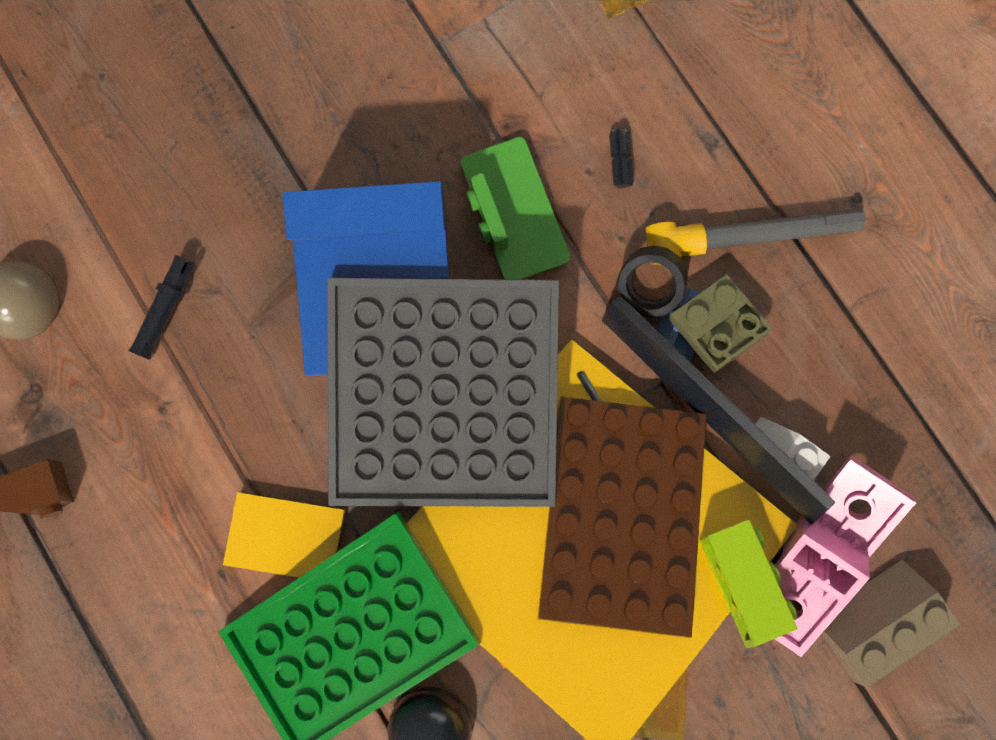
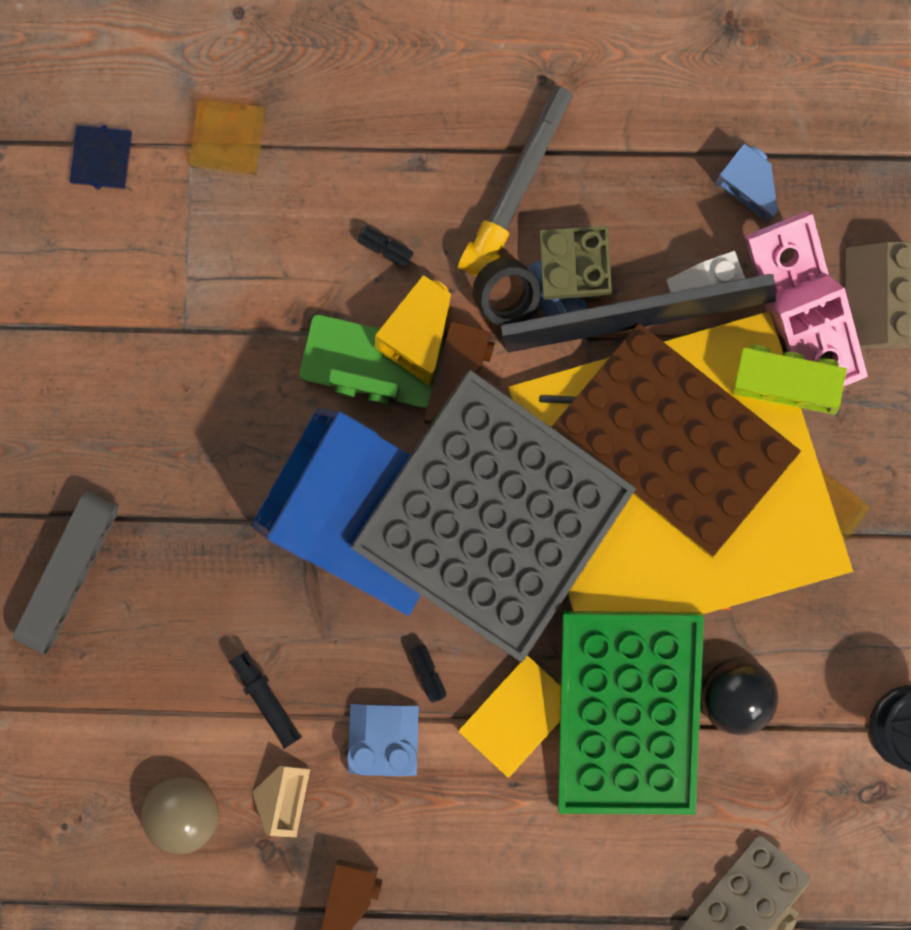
camera: 55 degrees left, 5 degrees up
(81, 379) = (282, 800): none -> tan slope
(168, 75) = (66, 572): none -> dark grey beam
(188, 433) = (383, 740): none -> medium blue slope
(268, 439) = (430, 679): none -> black piece
(568, 226) = (416, 329): none -> yellow slope
(579, 279) = (463, 351): none -> reddish brown slope
(900, 432) = (751, 181): none -> medium blue slope

